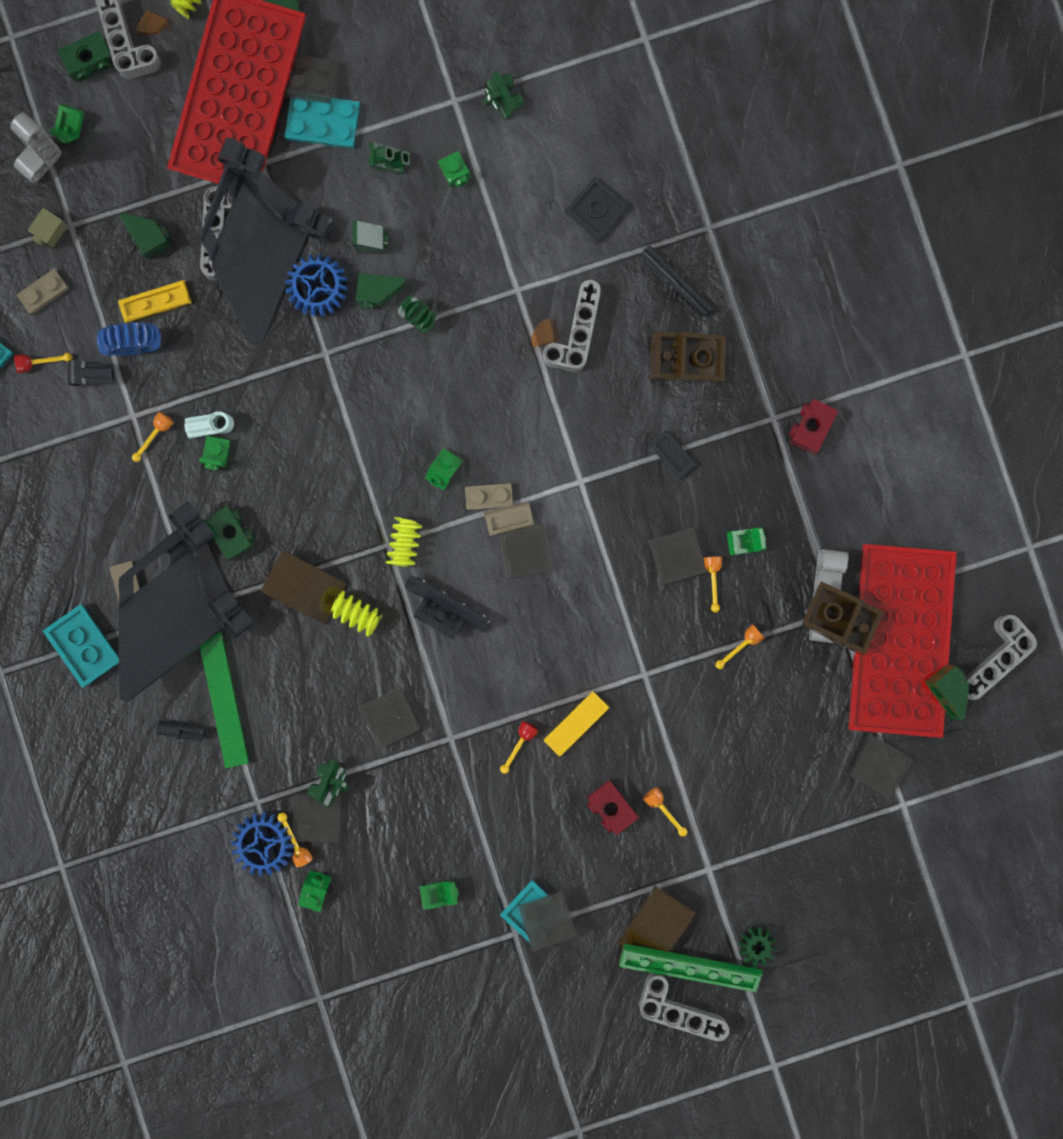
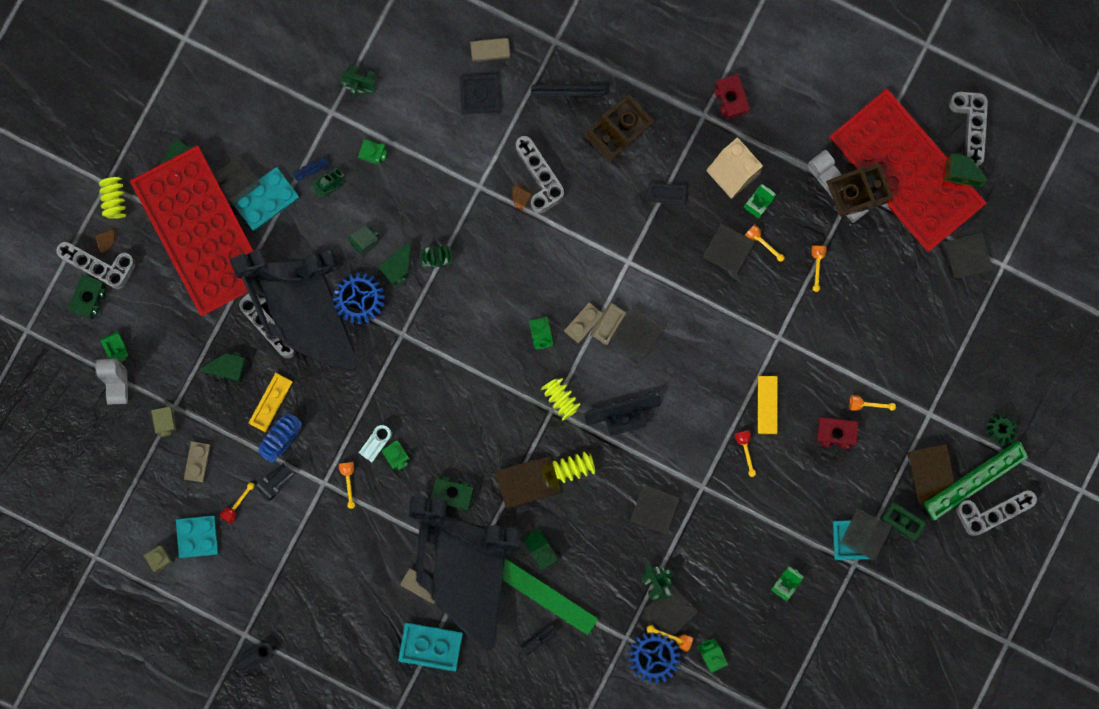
camera: 45 degrees left, 5 degrees down
(257, 655) = (540, 549): none -> dark green slope
(387, 132) = (311, 169): none -> dark blue axle
(591, 942) = (903, 522): none -> dark green brick
(644, 179) = (490, 49): none -> dark tan tile
(752, 491) = (735, 168): none -> tan slope

